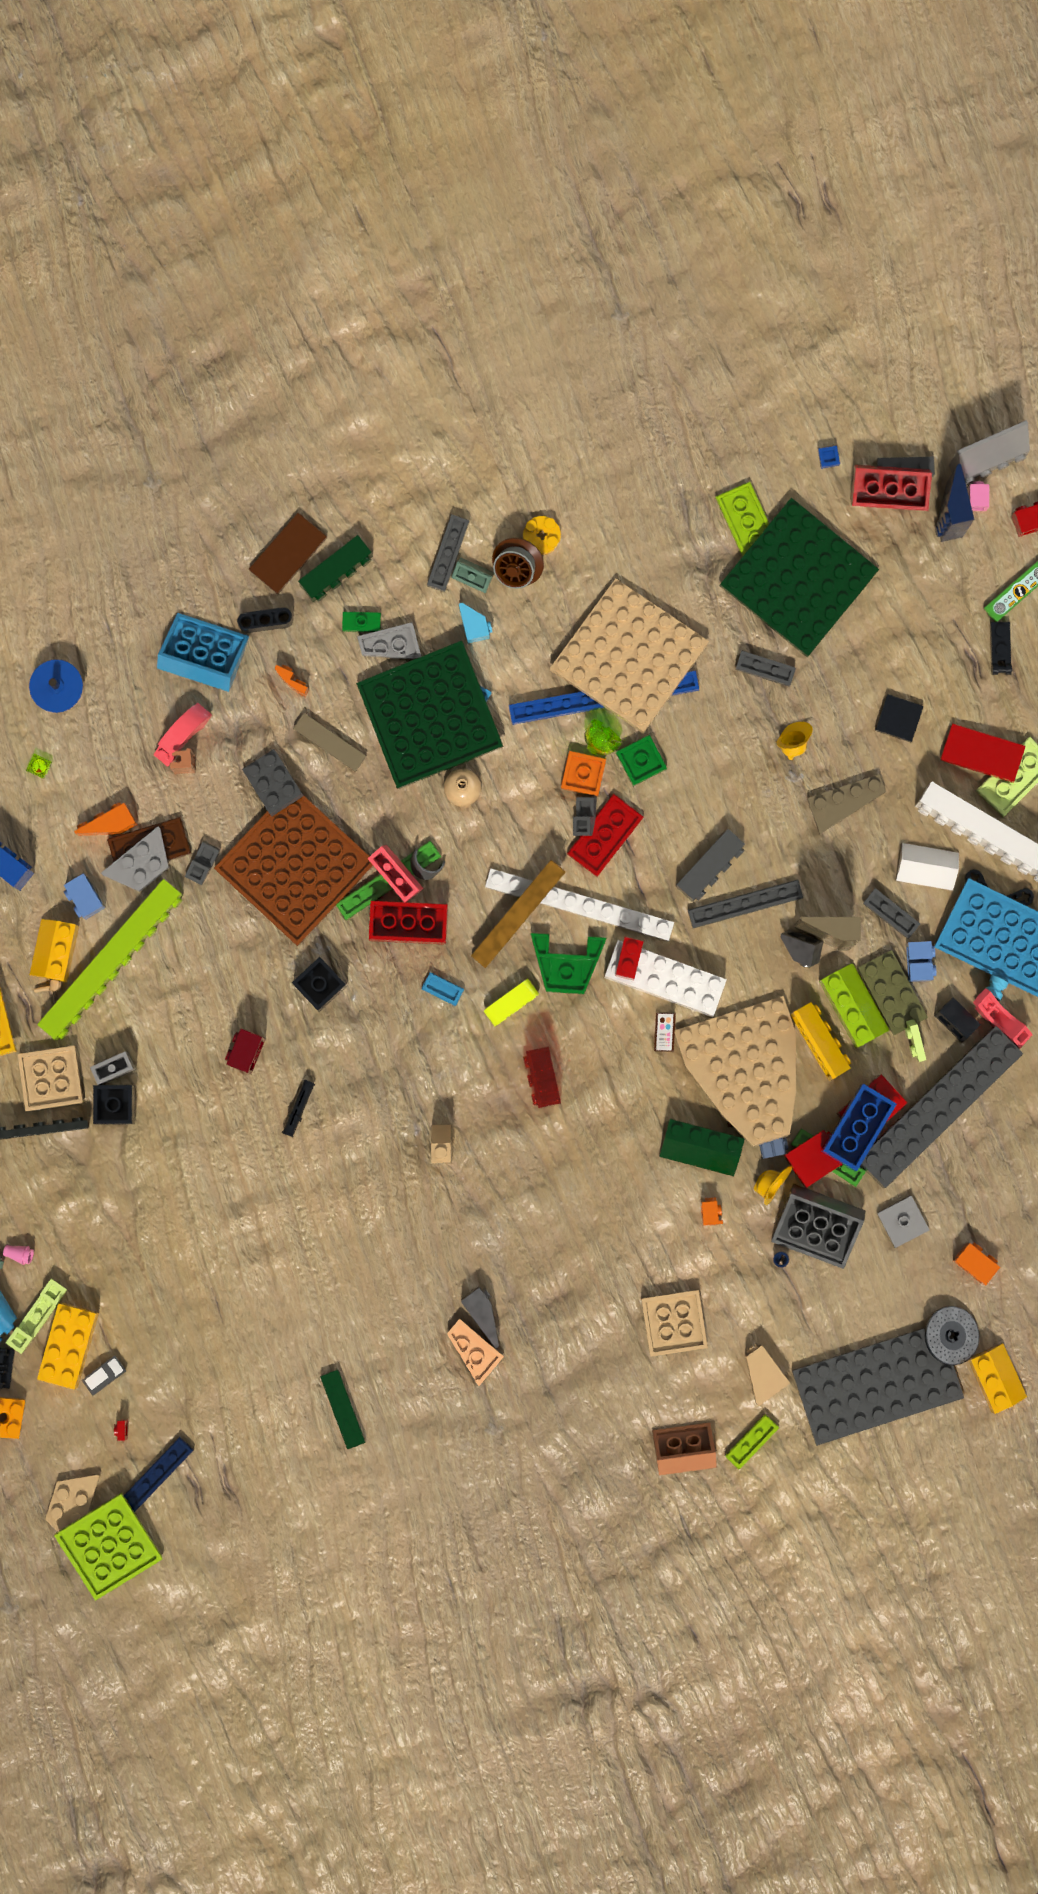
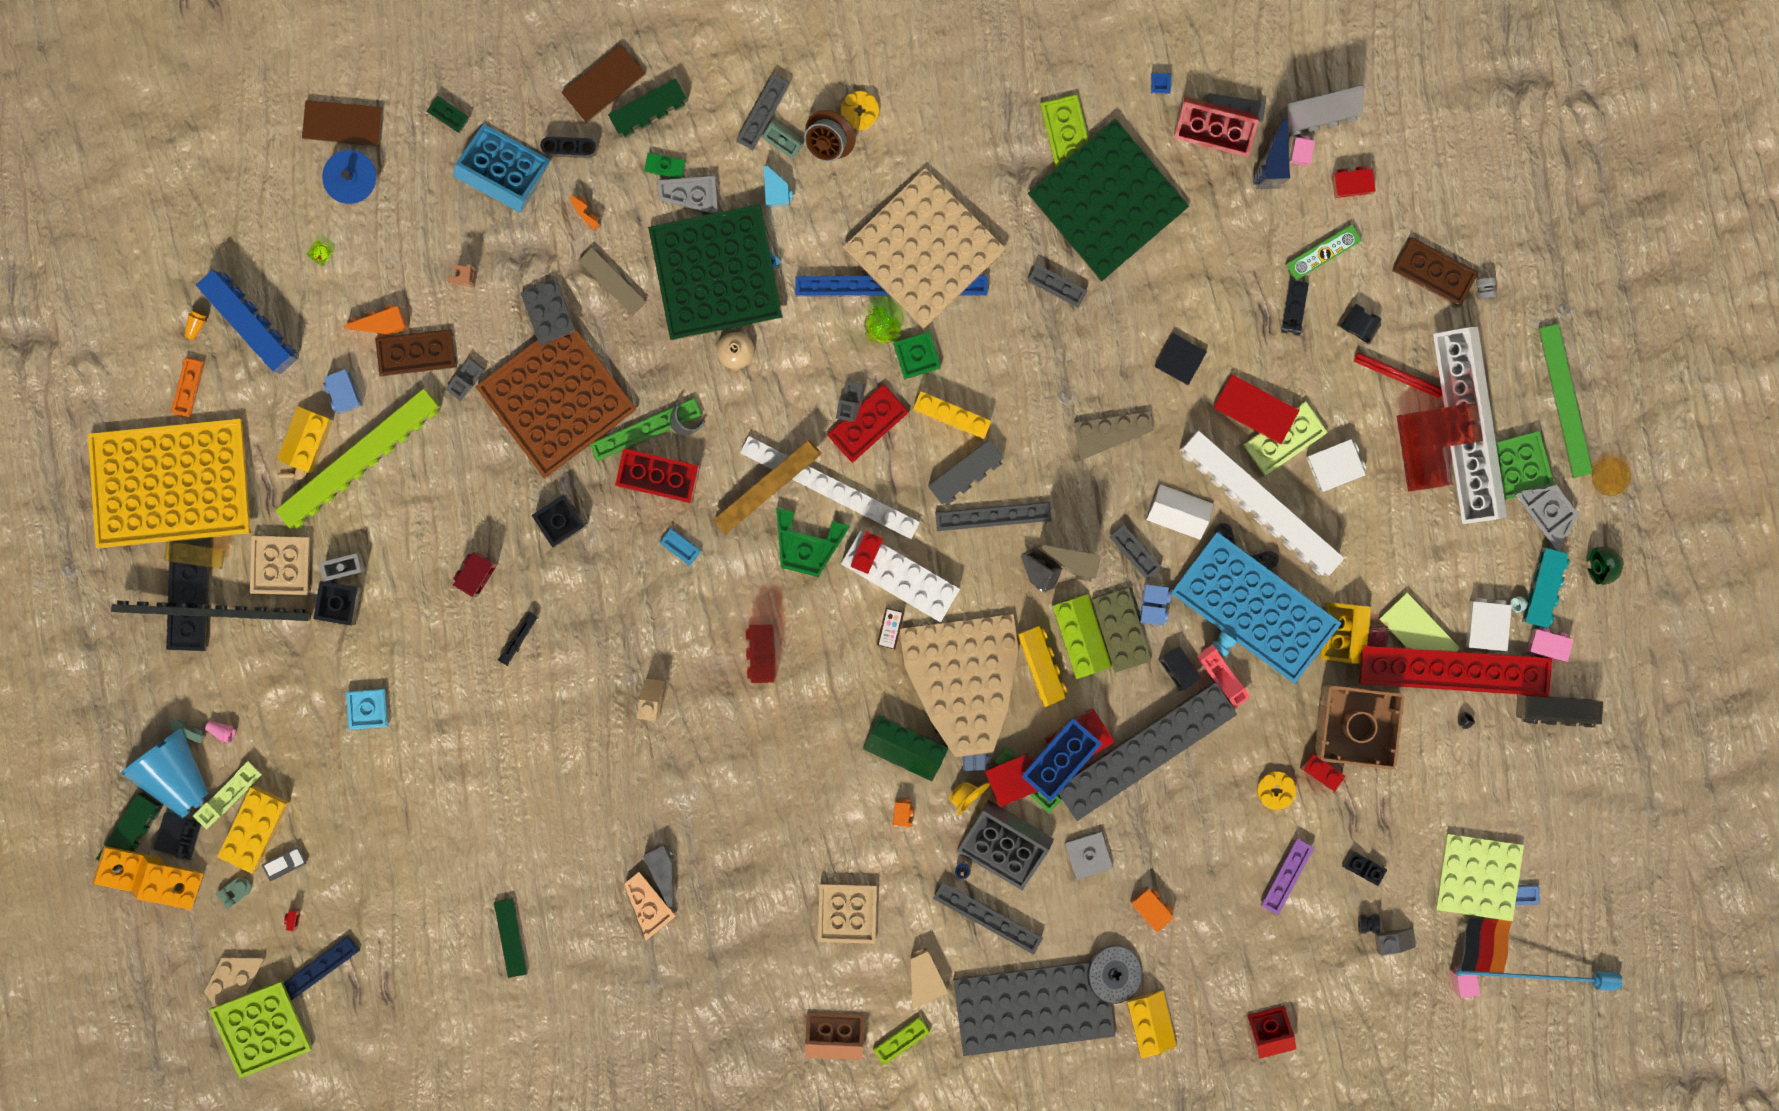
camera: 10 degrees right, 5 degrees up
(39, 636) = (342, 123): none -> reddish brown tile
(64, 1408) = (239, 887): none -> sand green plate
(140, 863) = (404, 369): light grey wing -> none
(141, 610) = (448, 114): none -> dark green plate
(160, 1205) = (366, 709): none -> medium azure plate
(180, 733) = (466, 245): coral arch -> none
(395, 873) = (652, 425): coral brick -> none
(511, 1002) = (745, 572): neon yellow beam -> none
(583, 773) = (857, 358): orange plate -> none
(686, 812) = (952, 415): none -> yellow brick
(794, 739) = (1072, 361): yellow piece -> none
(815, 1302) = (988, 918): none -> dark grey plate
(912, 1033) = (1133, 675): yellowish green plate -> none

